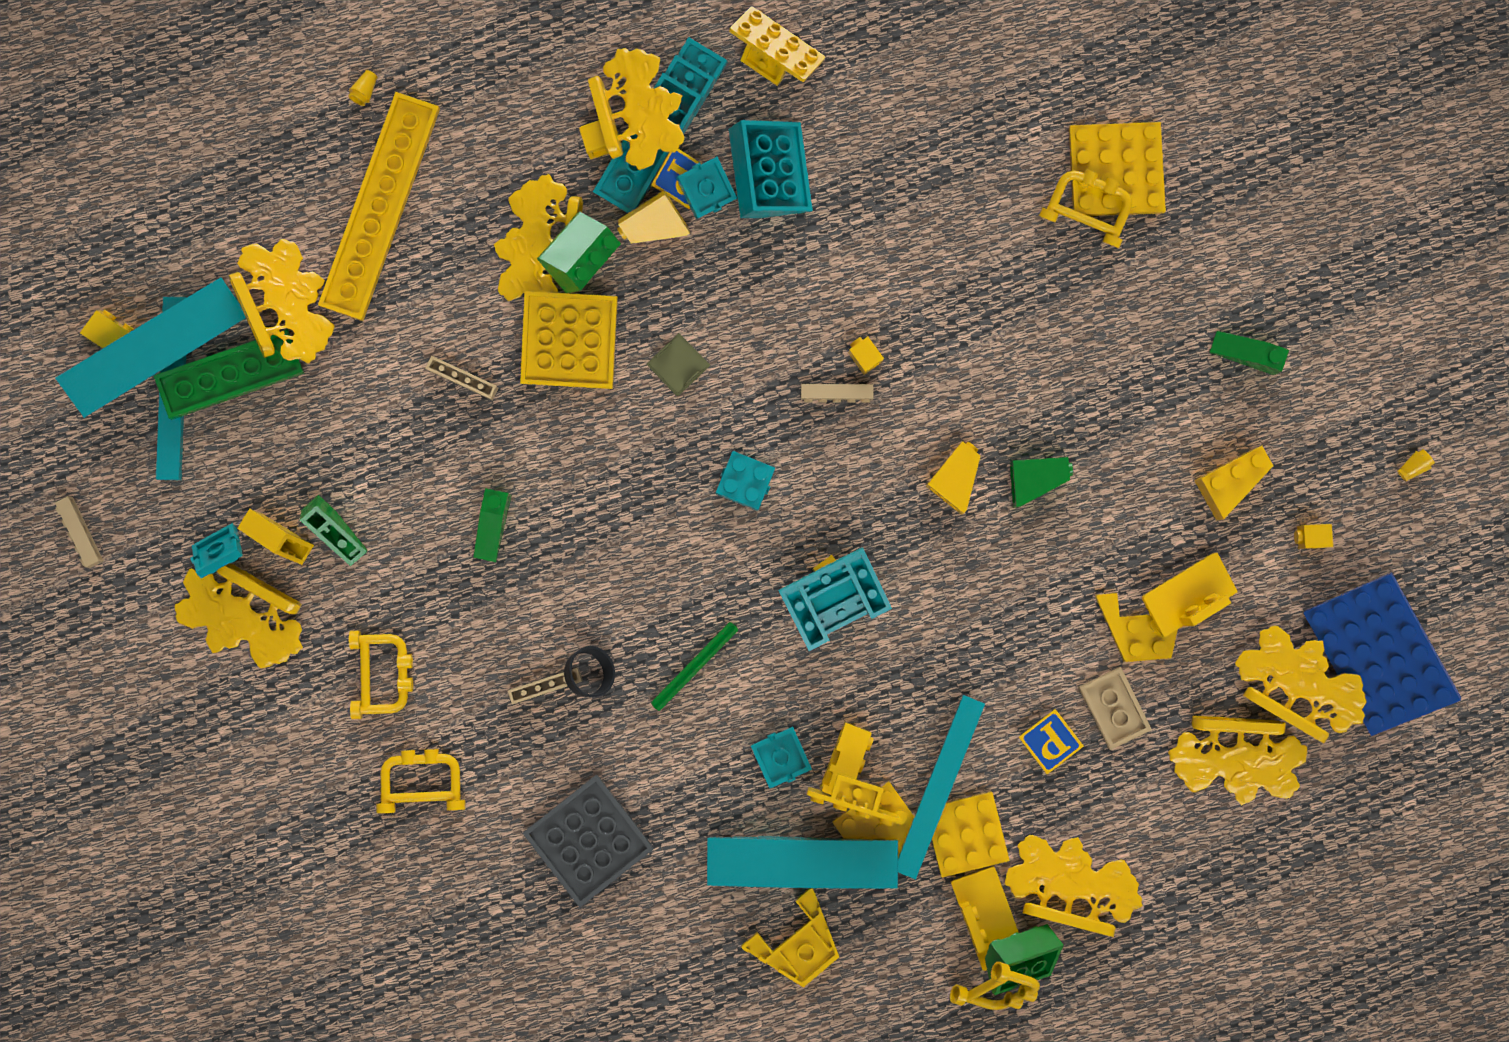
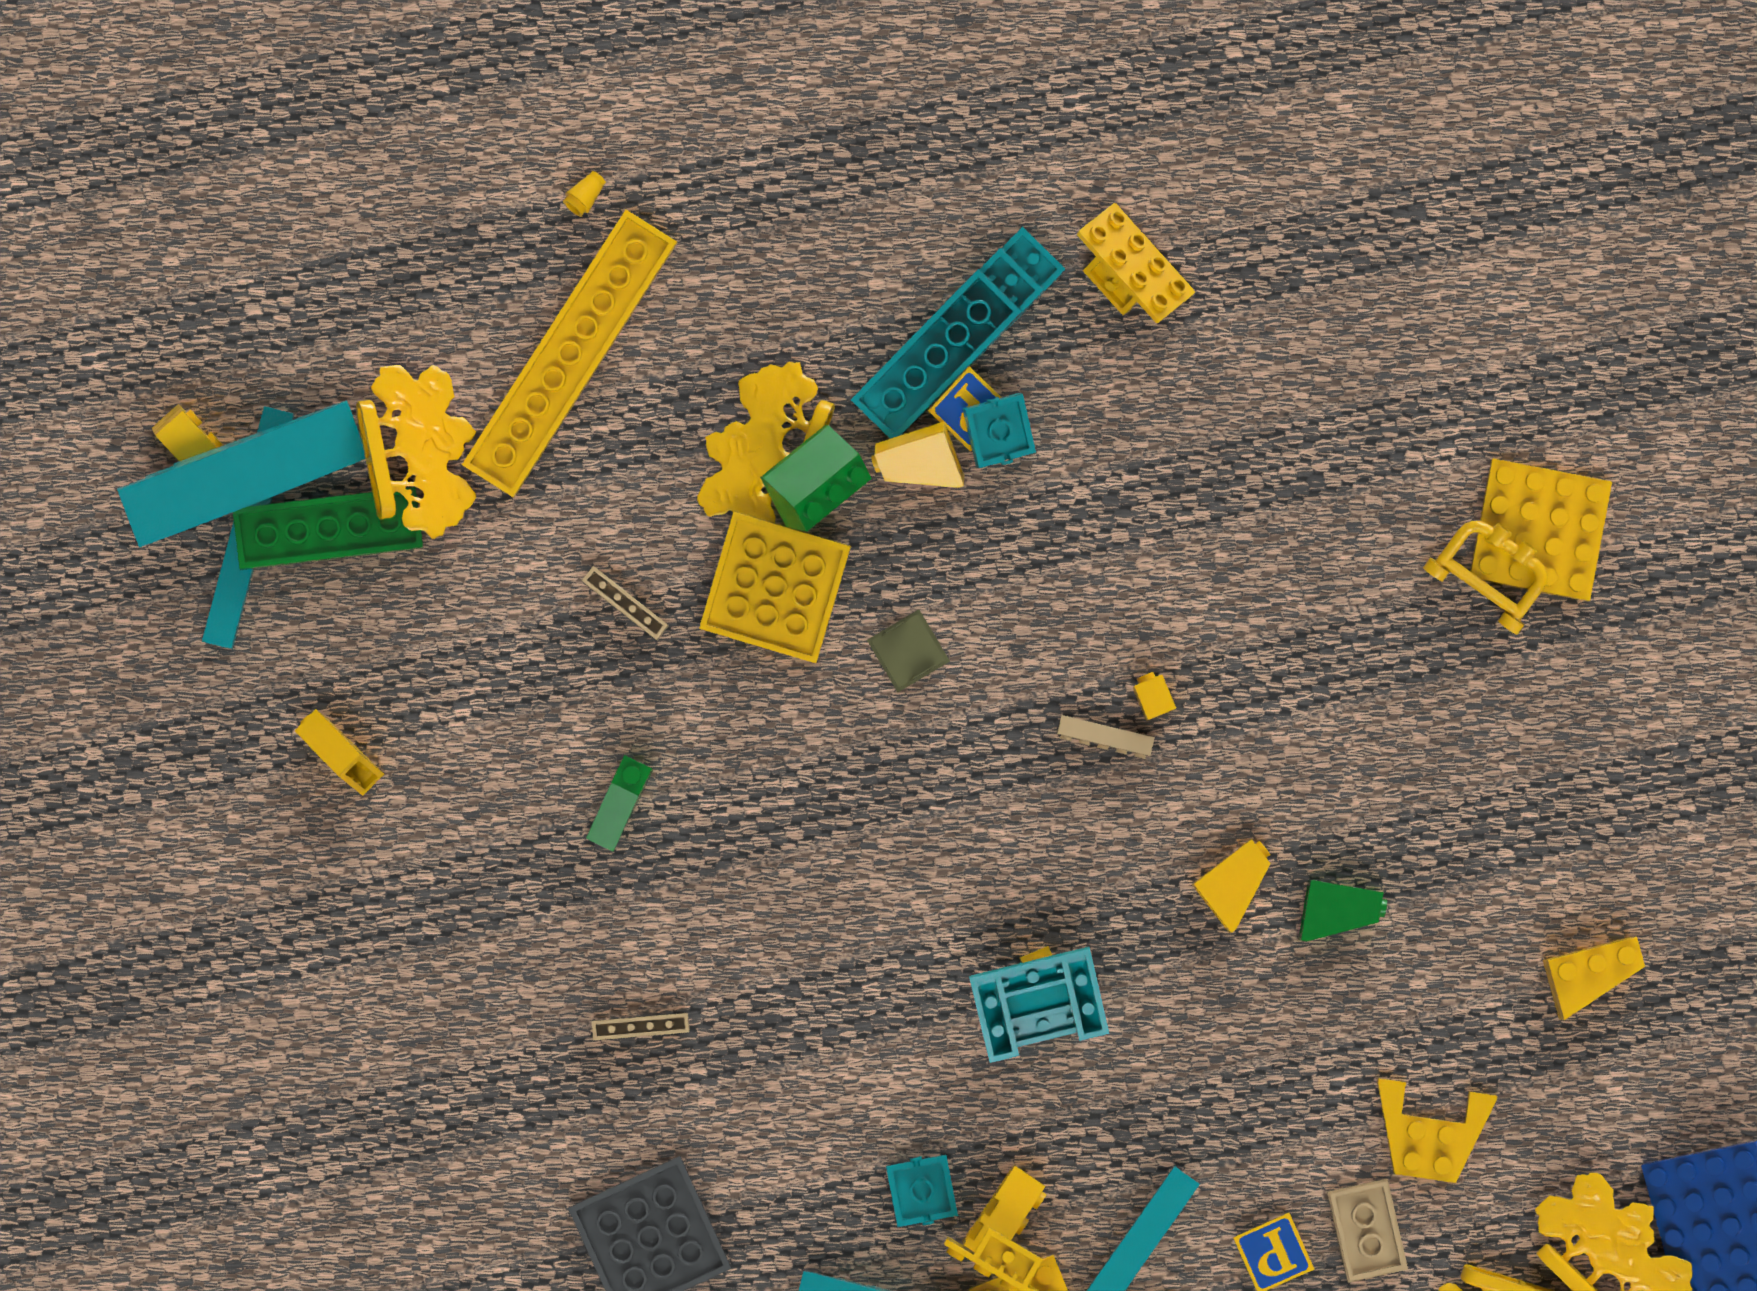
camera: 15 degrees right, 0 degrees up
(78, 532) = (87, 686): tan piece -> none
(216, 551) = (261, 753): teal plate -> none
(233, 620) = (259, 844): yellow plant -> none
(332, 530) = (414, 761): green slope -> none
(404, 684) = (460, 981): yellow bar -> none
(408, 757) = (444, 1077): yellow bar -> none
(593, 140) = (869, 332): yellow panel -> none
(607, 667) = (725, 1017): black tyre -> none
(644, 109) = (943, 311): yellow plant -> none
(694, 666) = (838, 1047): green axle -> none
(745, 481) = (959, 823): teal plate -> none
(770, 168) = (1088, 424): teal slope -> none
(1190, 595) = (1499, 1108): yellow bracket -> none
(1250, 352) = (1653, 810): green slope -> none
(1314, 536) = (1678, 1070): yellow brick -> none

